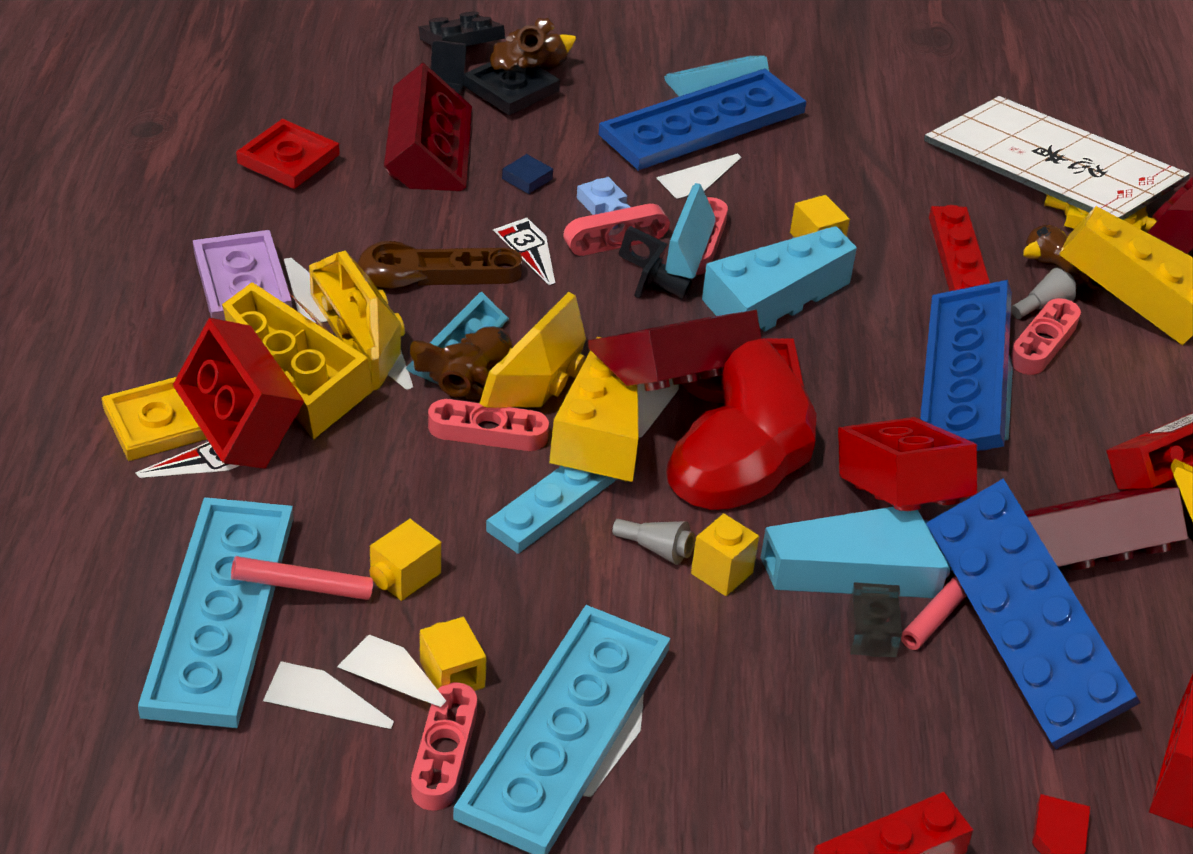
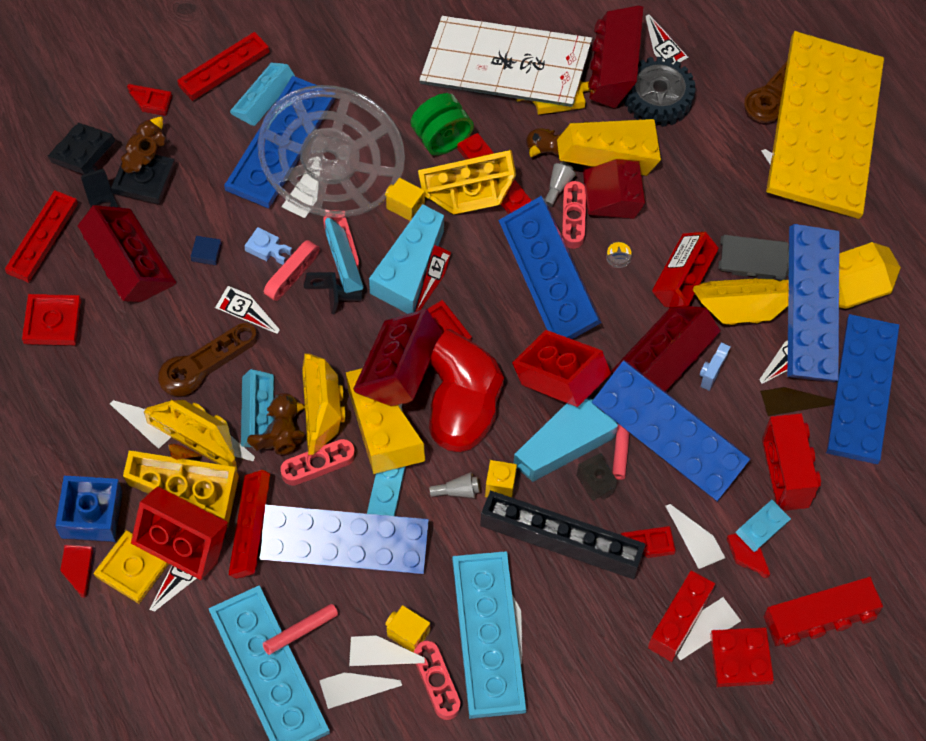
camera: 30 degrees left, 20 degrees up
(89, 383) = (76, 566): none -> red tile
(152, 325) = (89, 508): none -> blue brick
(234, 262) = (100, 436): lavender plate -> none
(329, 451) = (249, 524): none -> red plate
(344, 84) = (41, 236): none -> red plate
(405, 559) = (341, 583): yellow brick -> none
(479, 527) = (344, 539): none -> plate
(587, 33) = (151, 99): none -> red tile
(688, 34) = (223, 66): none -> red plate
(746, 132) = (332, 141): none -> clear dish
(773, 659) = (562, 534): none -> black brick
(804, 307) = (434, 274): none -> sticker
(906, 743) = (658, 541): none -> red tile
(917, 233) = (470, 182): none -> yellow wedge
(921, 169) = (441, 124): none -> green wheel
(987, 787) = (698, 541): none -> white sticker
(1084, 402) = (618, 254): none -> tile
(1109, 808) = (763, 525): none -> medium azure plate
(1122, 327) = (614, 189): none -> dark red slope
(1146, 580) = (711, 370): none -> light blue plate

